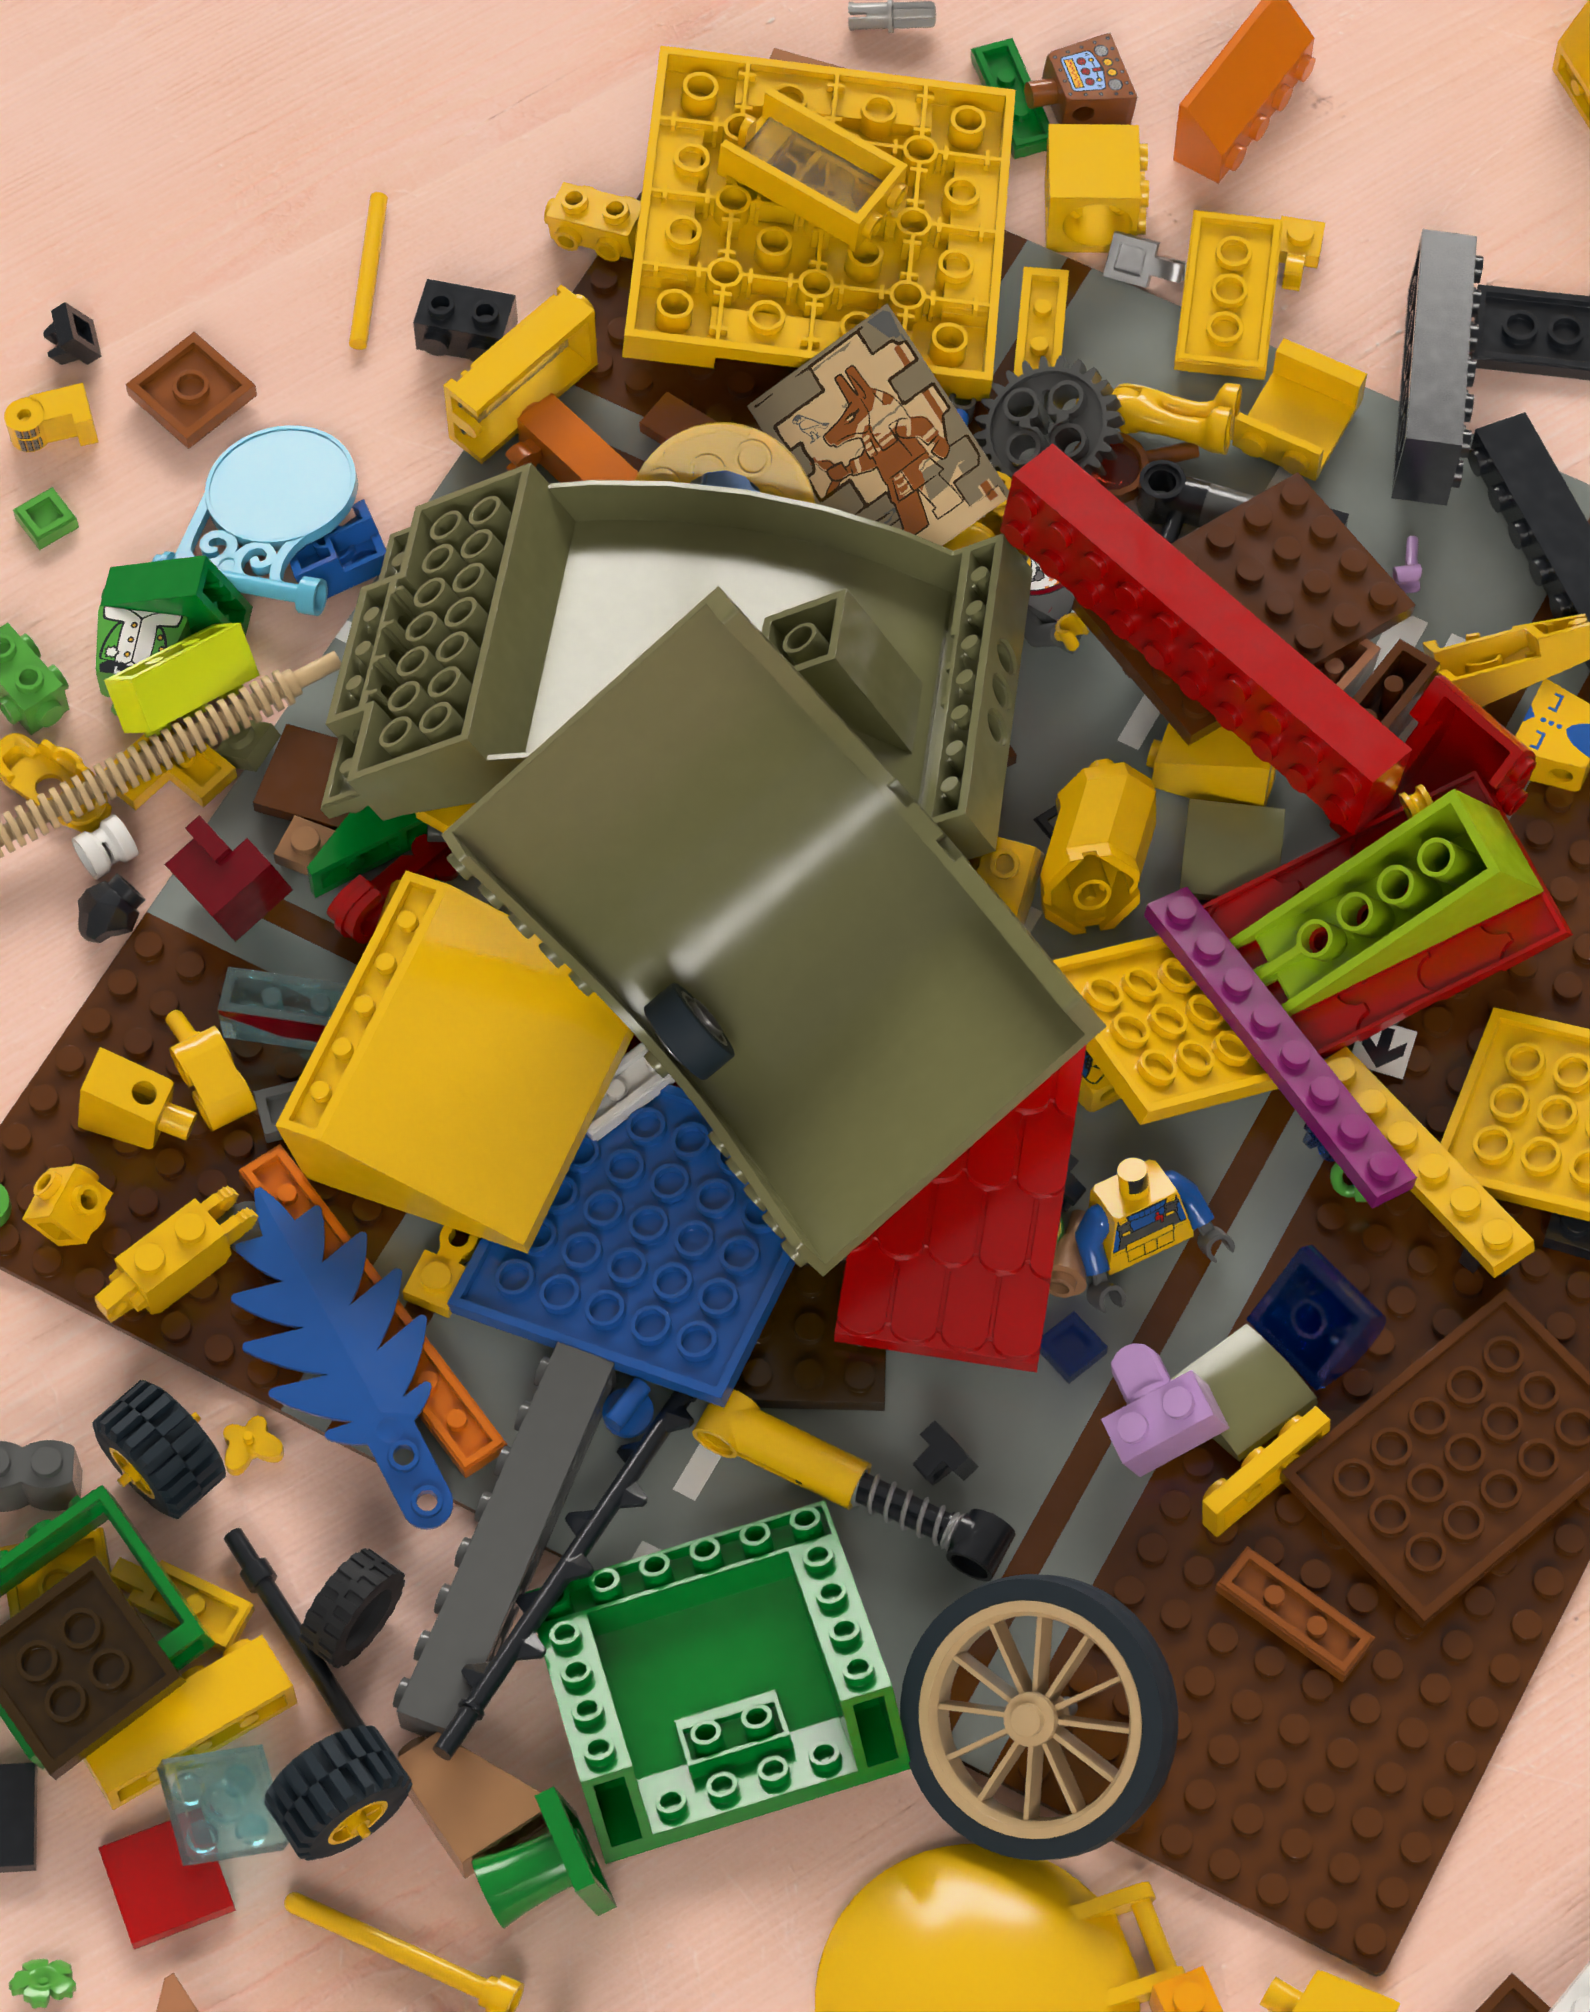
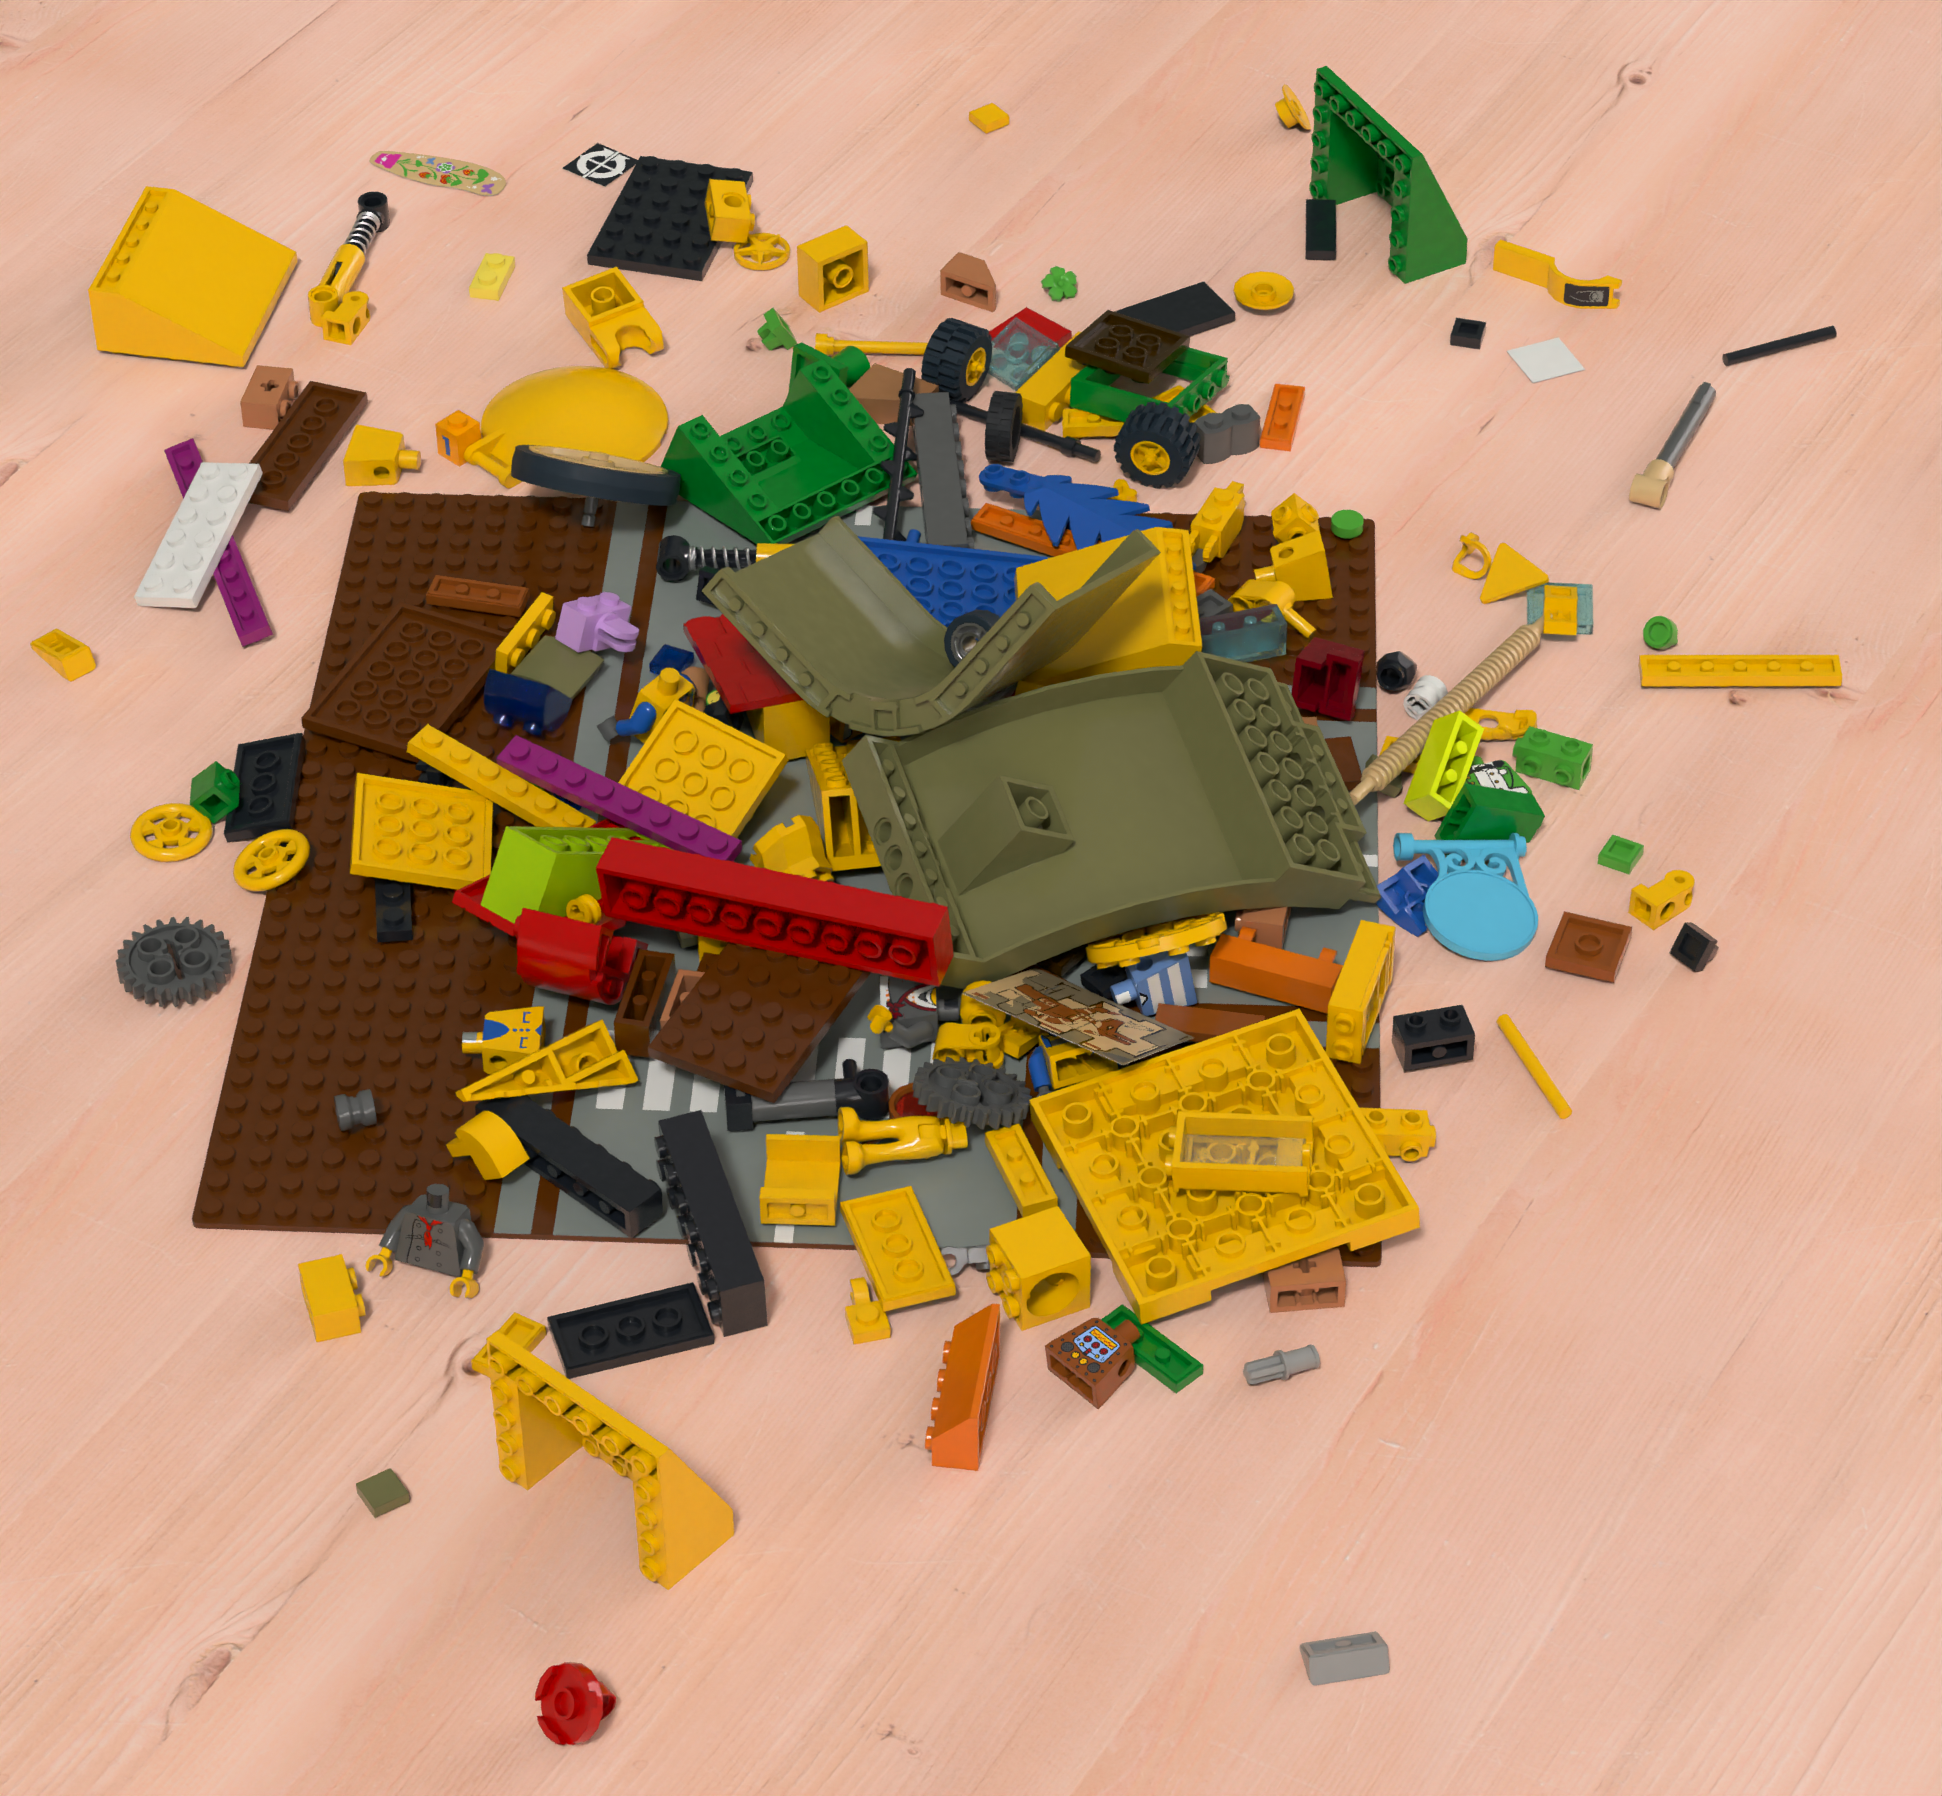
camera: 155 degrees right, 20 degrees down
(1408, 575) = (668, 1108): lavender hand -> none

